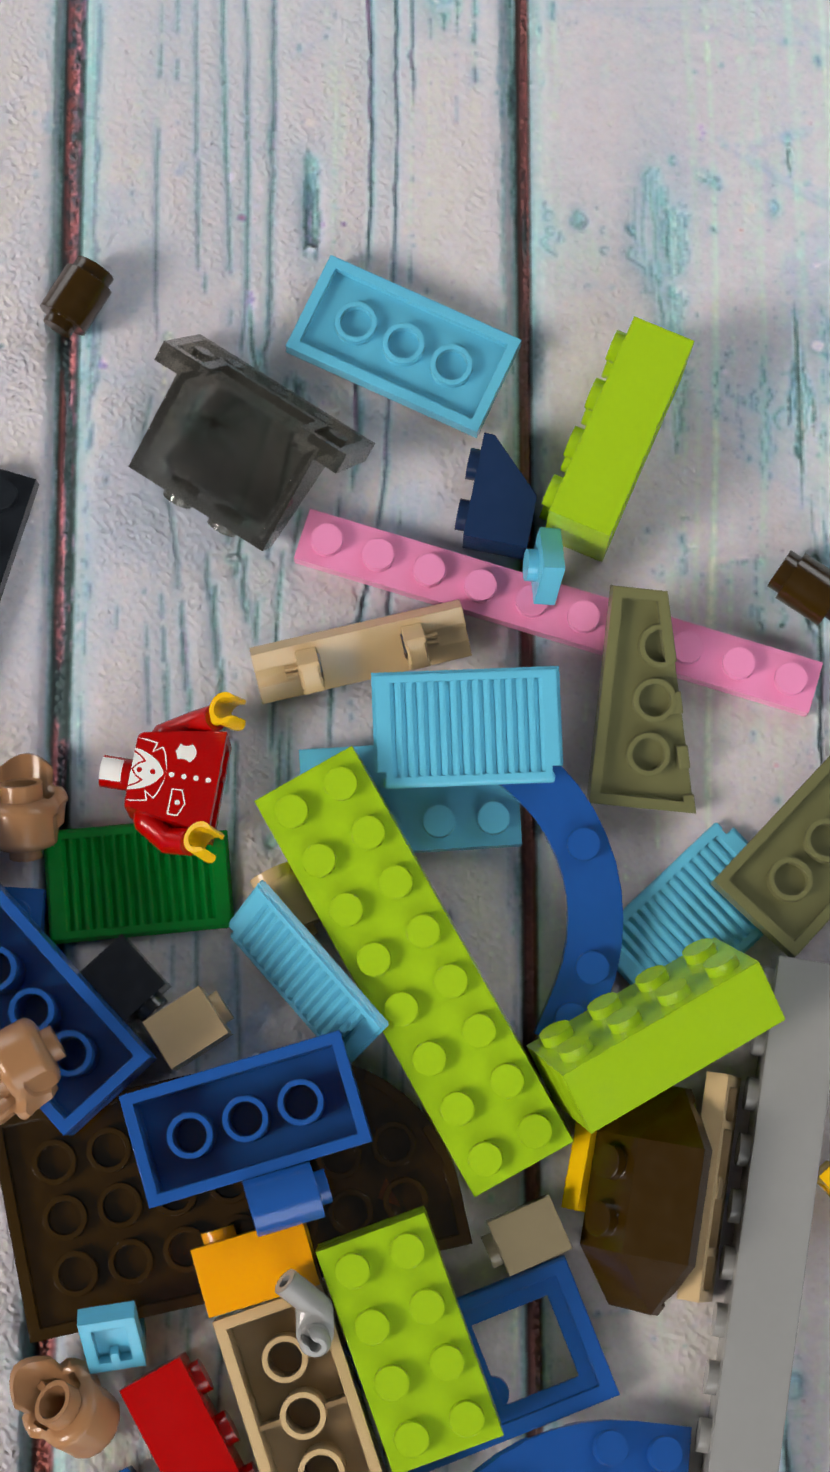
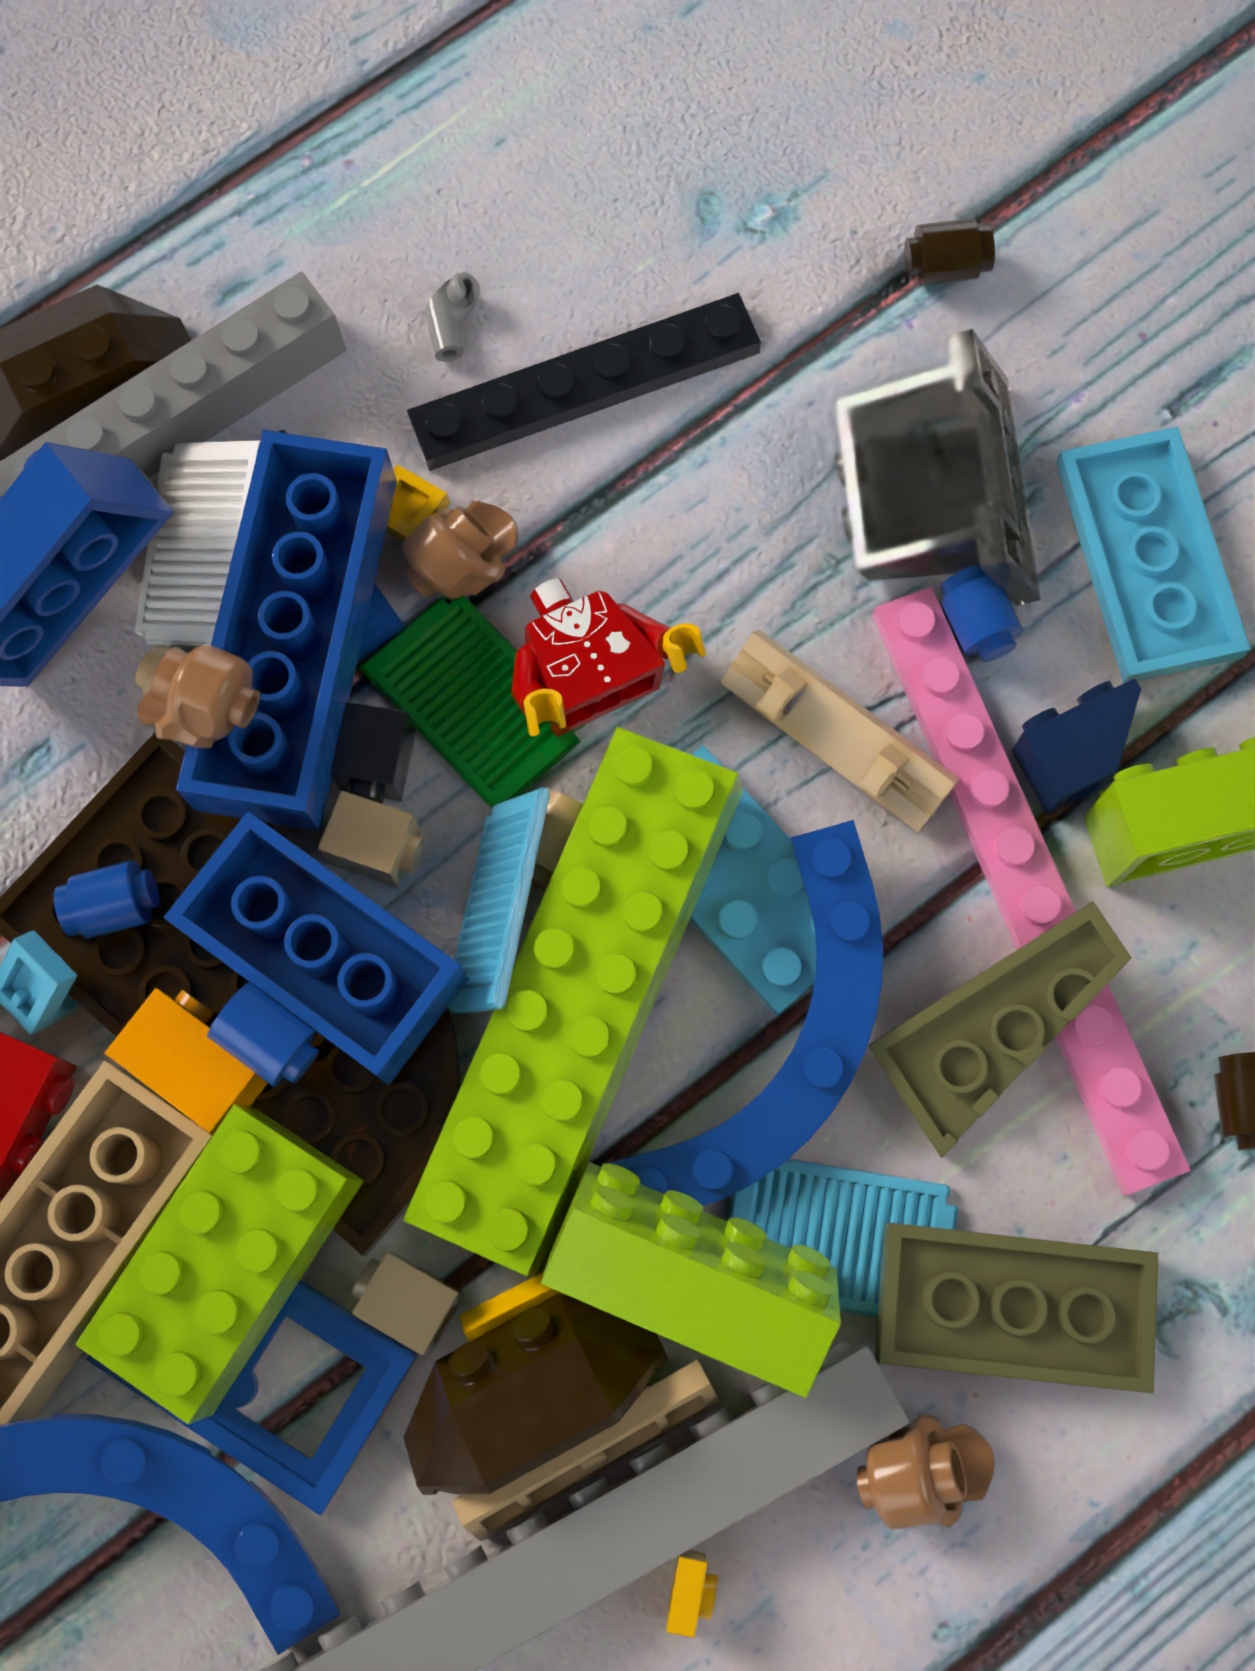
camera: 55 degrees right, 5 degrees down
(93, 1242) = (106, 900): none -> blue brick
(312, 1313) = (174, 1146): light grey arm -> none
(356, 494) = (980, 614): none -> blue brick
(467, 726) = (845, 870): medium azure window -> none
(545, 566) = (1057, 827): medium azure plate -> none

